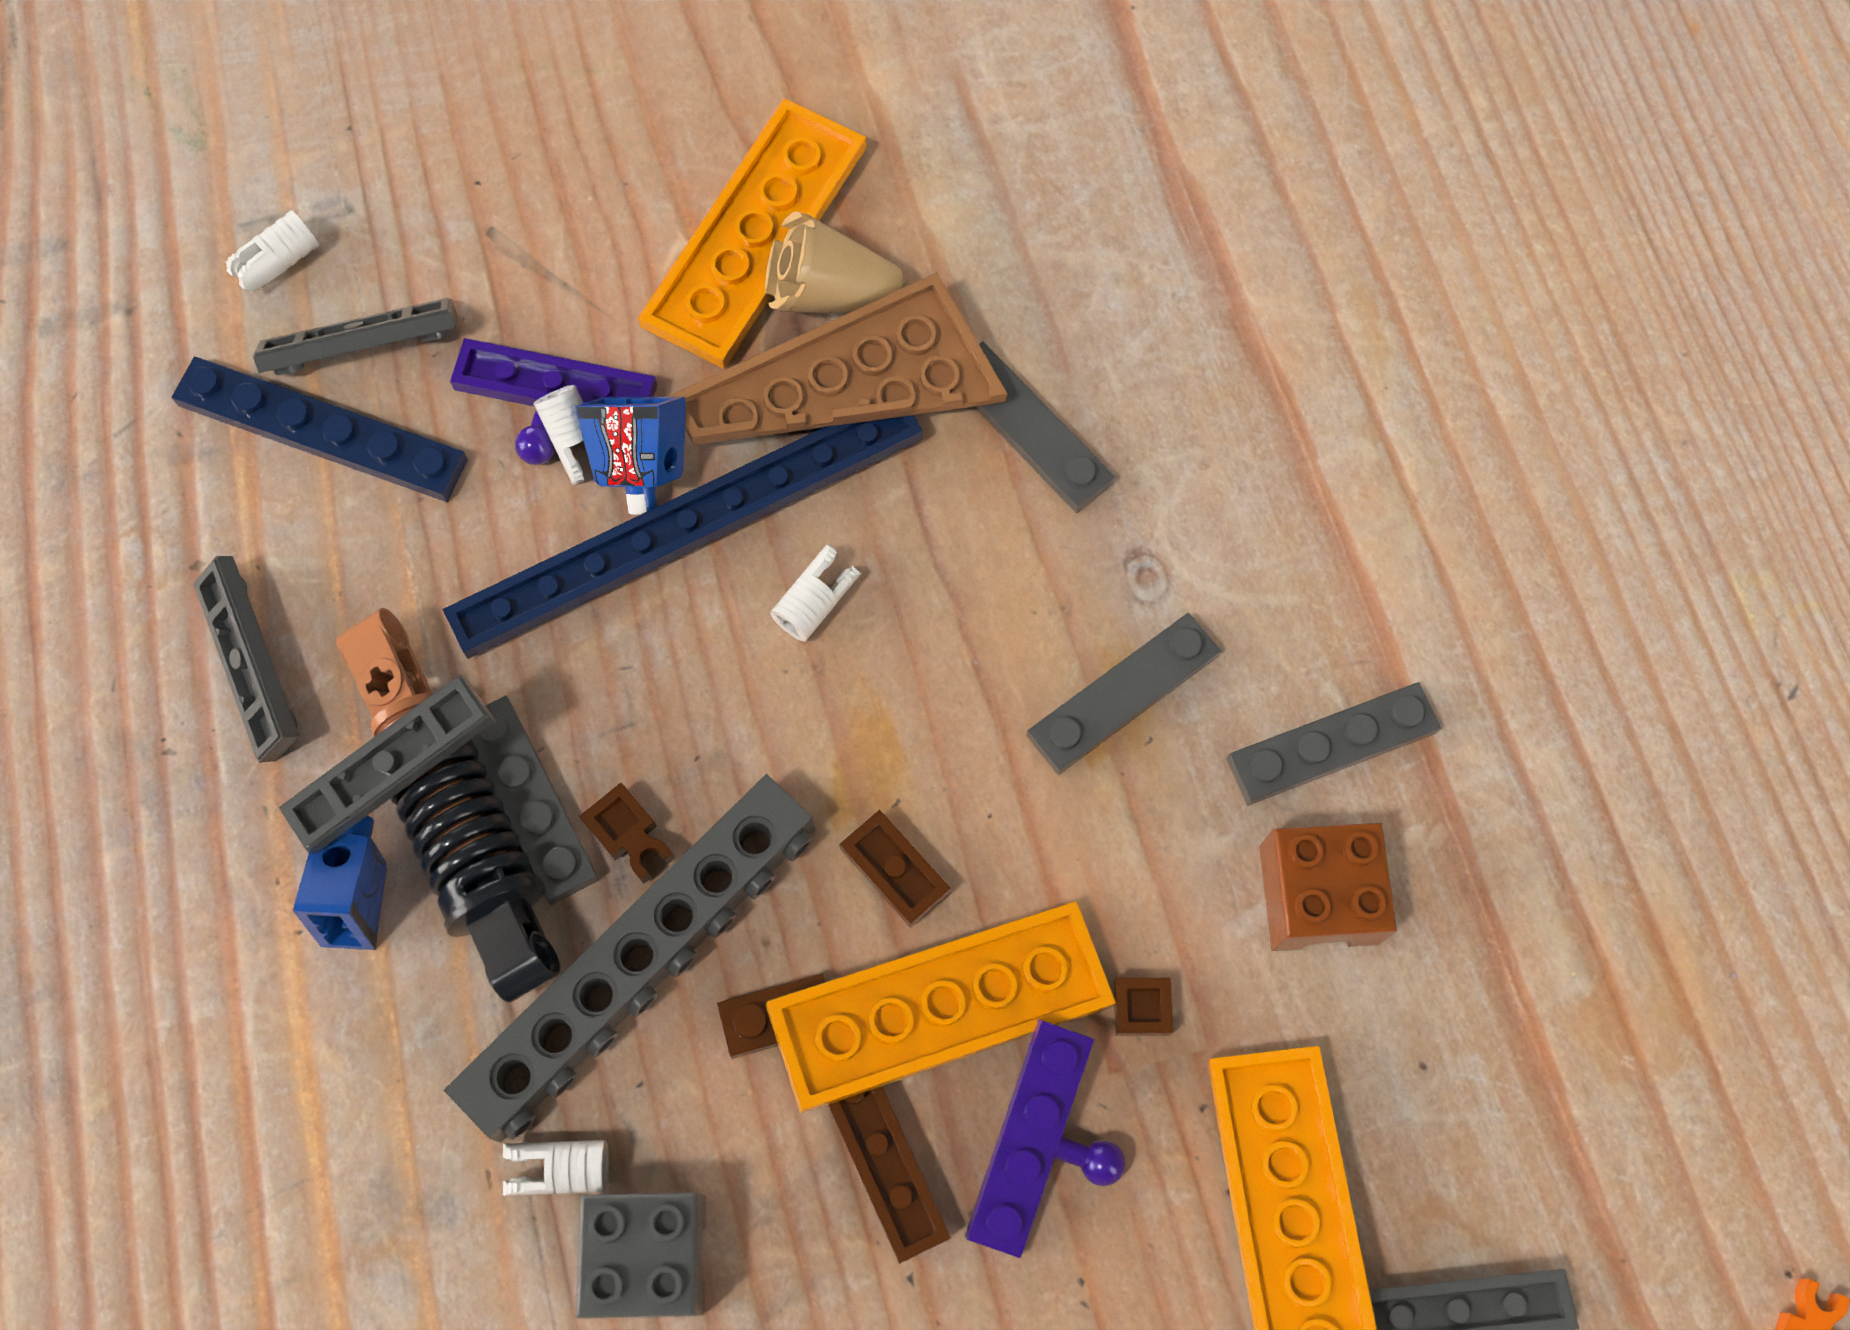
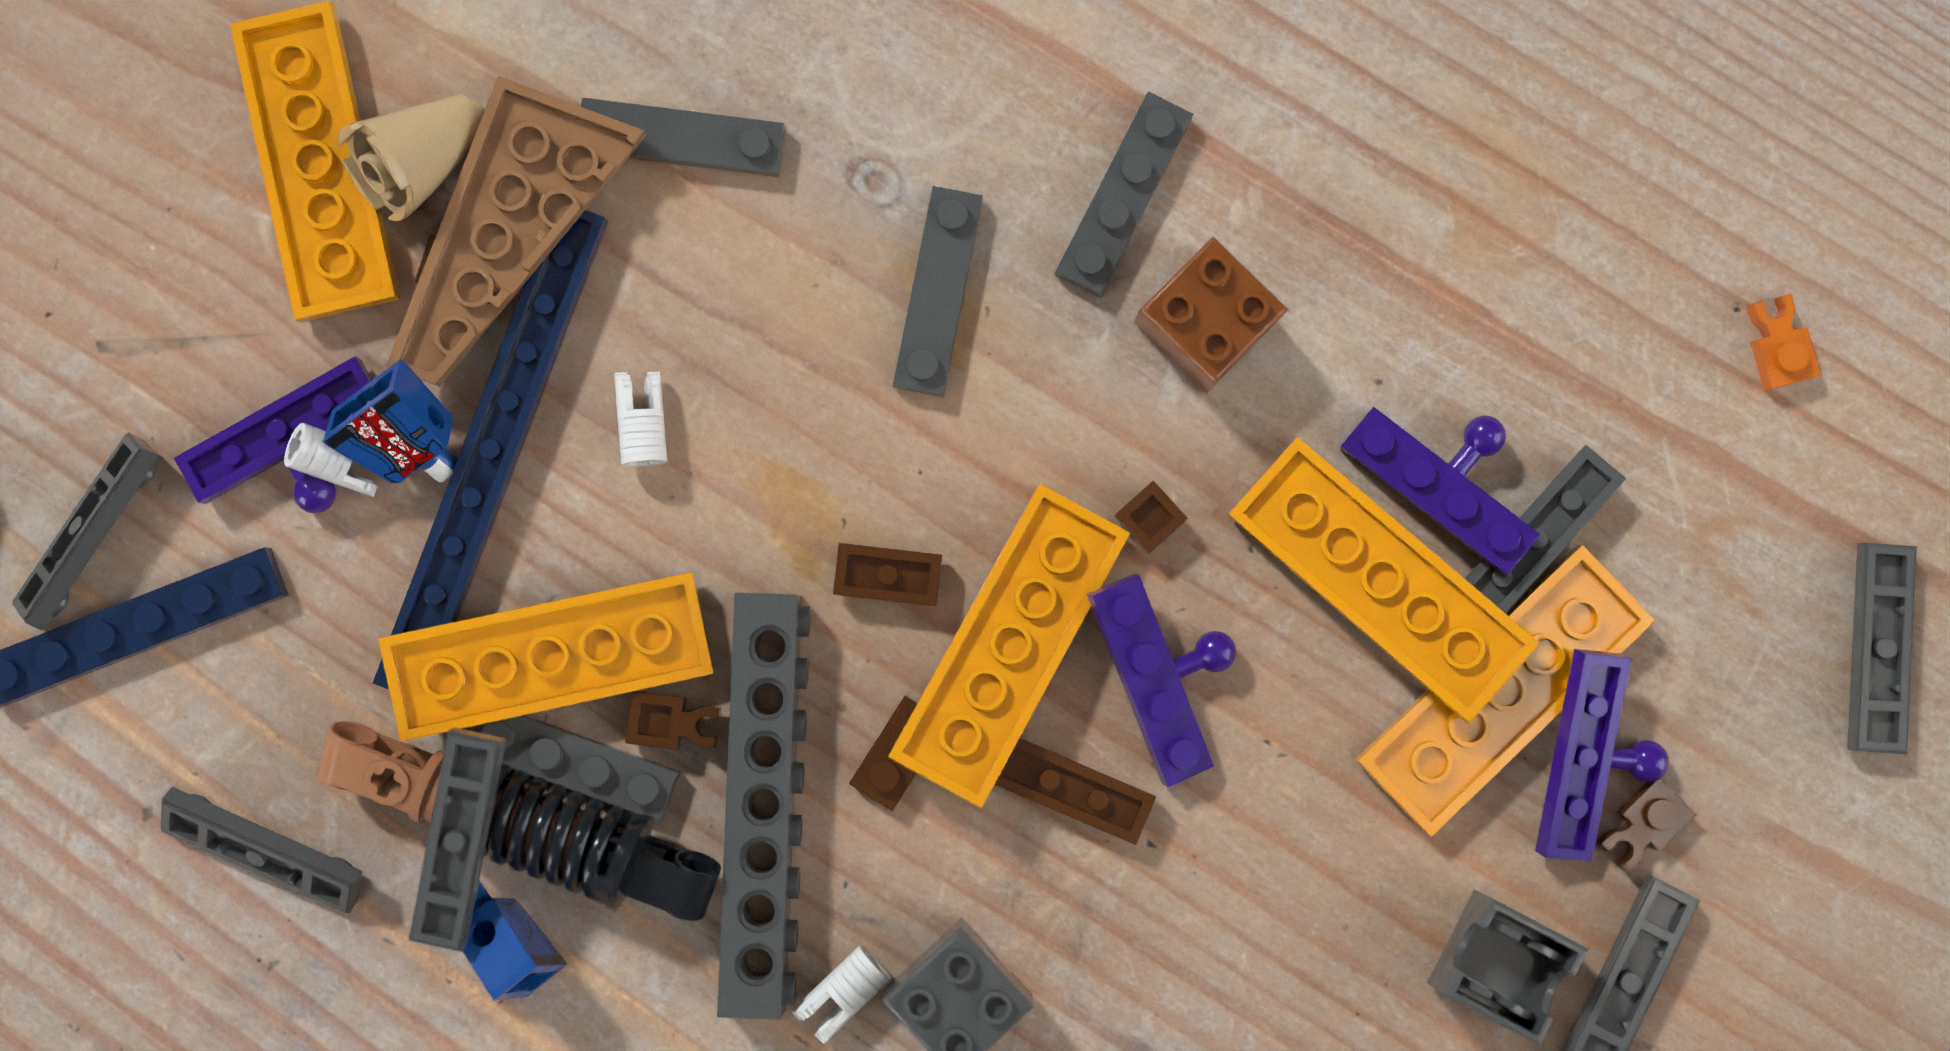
camera: 35 degrees left, 15 degrees up
(586, 700) = (545, 656): none -> light orange plate
(1408, 1198) = (1441, 487): none -> dark purple plate

